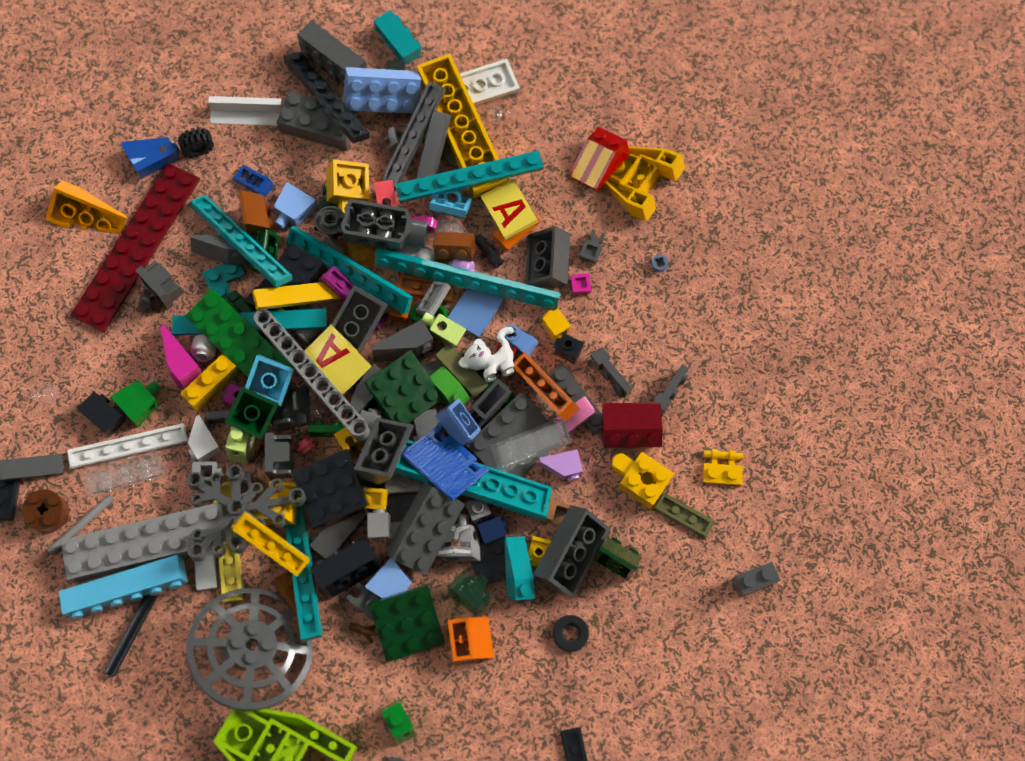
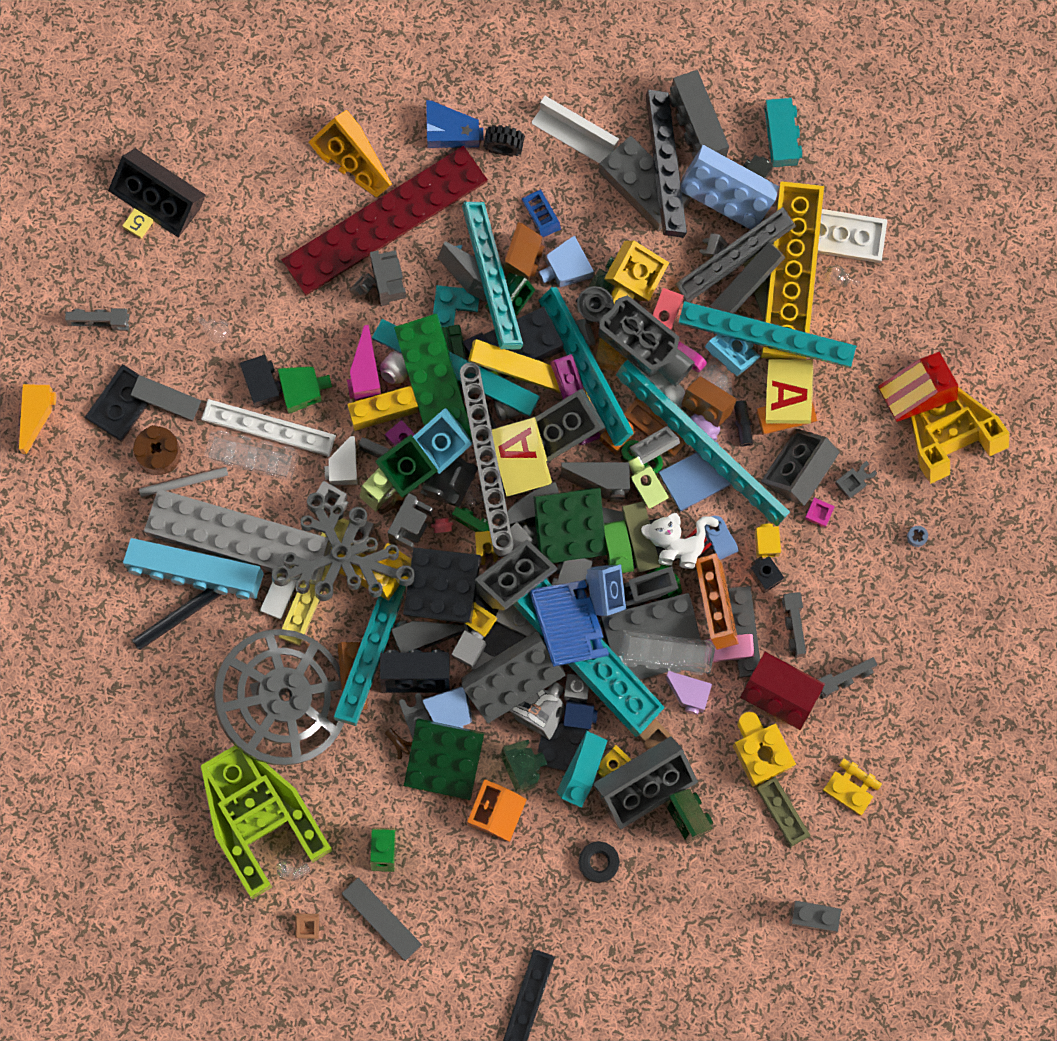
camera: 30 degrees right, 5 degrees up
(270, 543) = (355, 607): yellow plate -> none

